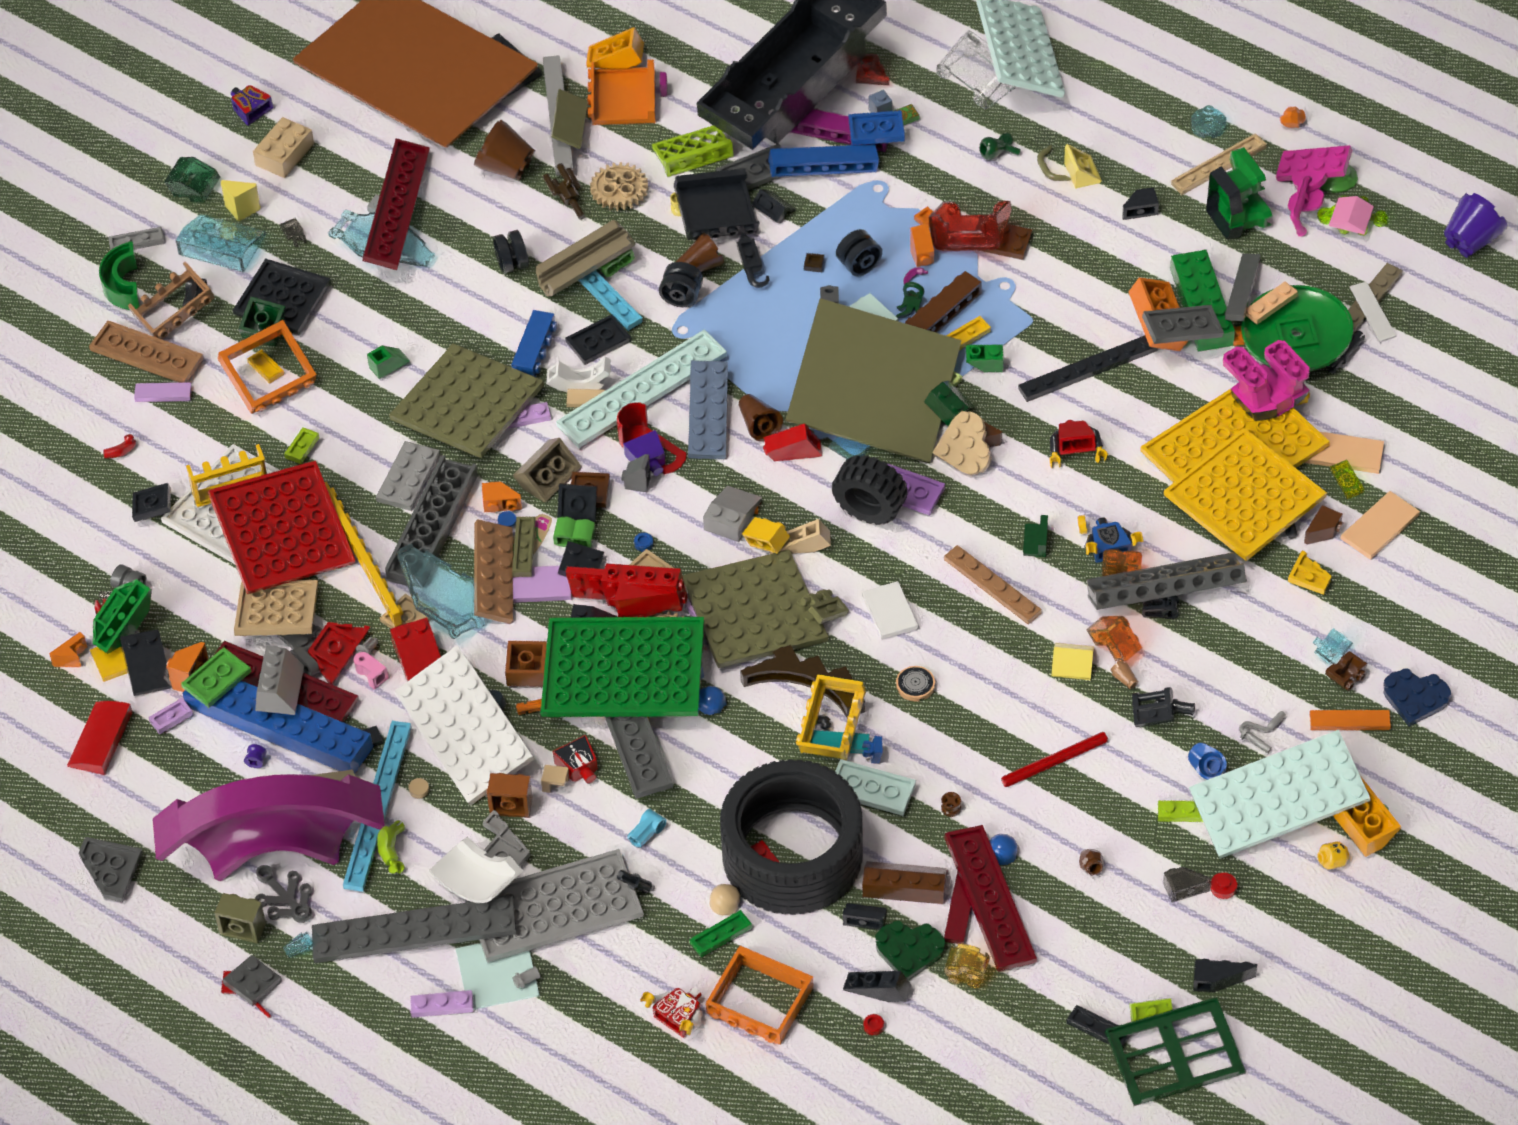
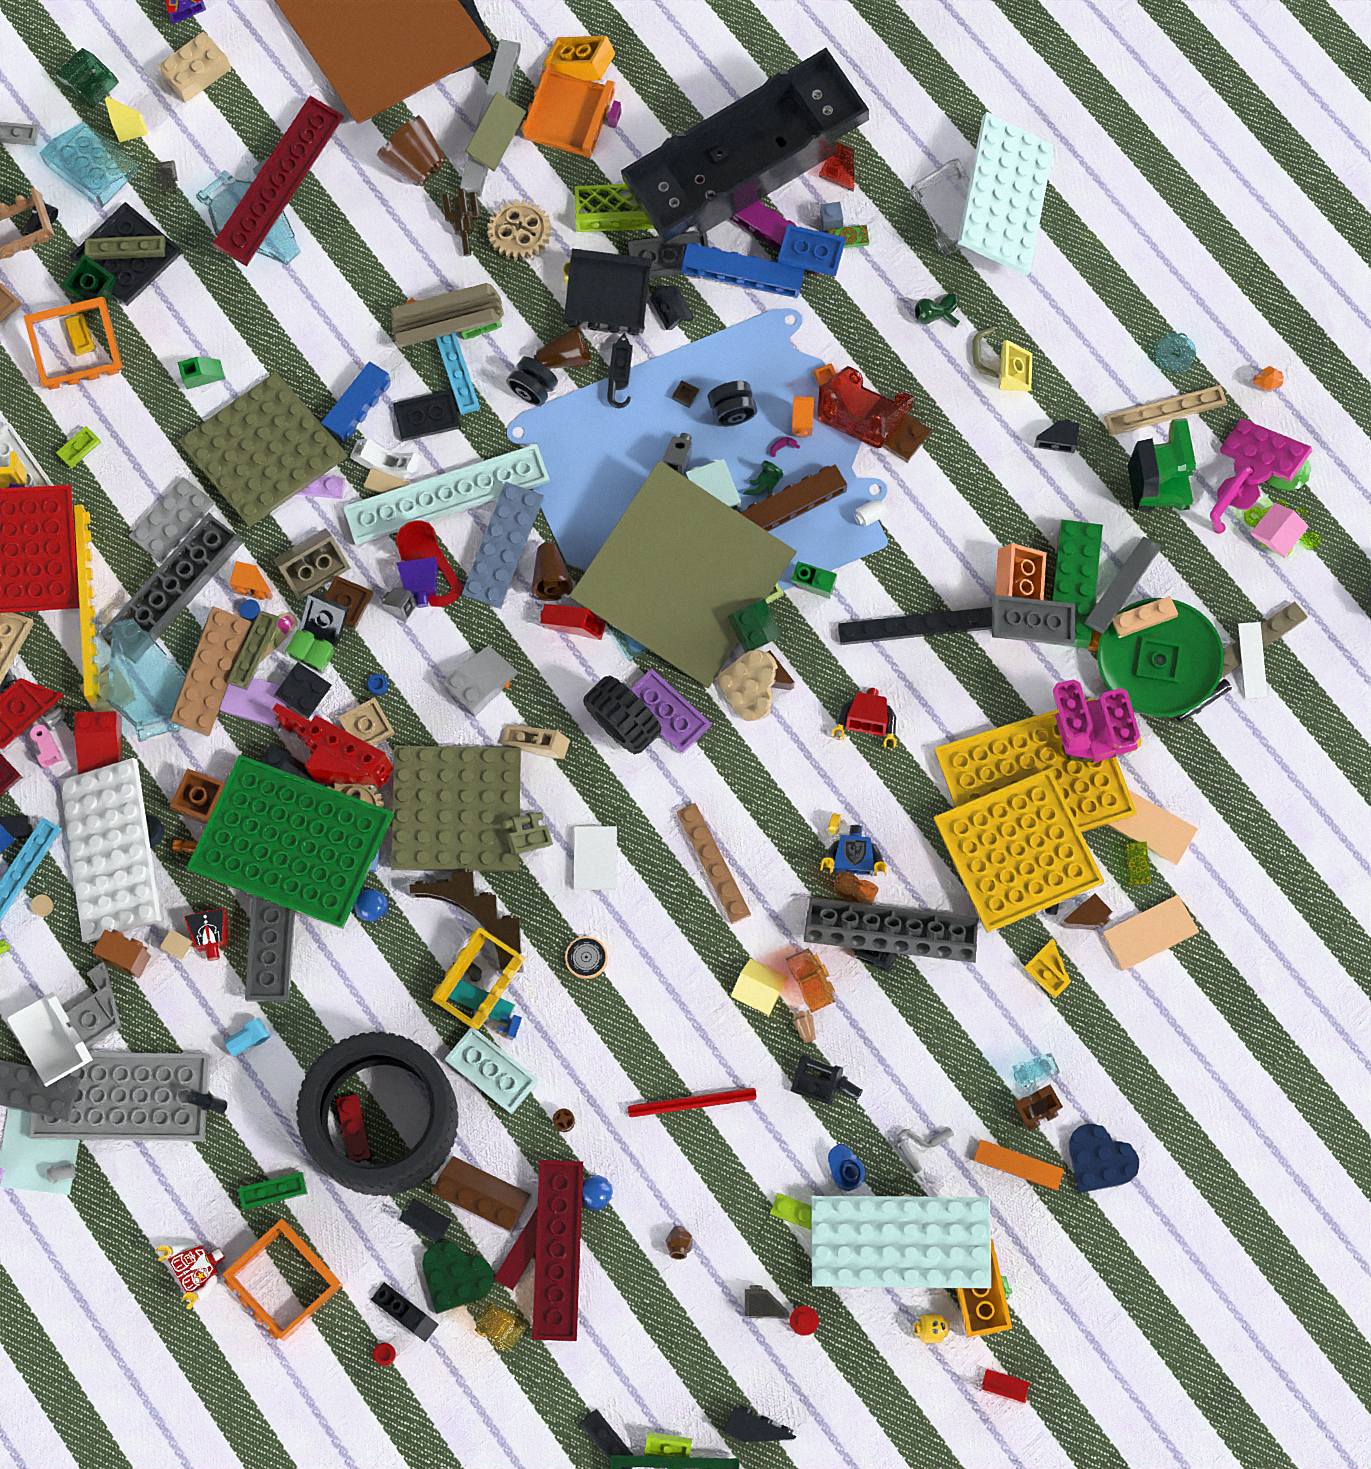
camera: 20 degrees right, 20 degrees up
(283, 288) = (125, 247): none -> olive tile
(510, 251) = (372, 280): black wheel -> none
(724, 899) = (292, 1151): tan hair -> none
(766, 535) = (500, 726): yellow brick -> none
(971, 331) = (811, 539): yellow plate -> none
(1008, 299) = (869, 512): none -> white brick
(1036, 538) = (780, 822): dark green panel -> none
(1414, 880) = (1005, 1386): none -> red panel

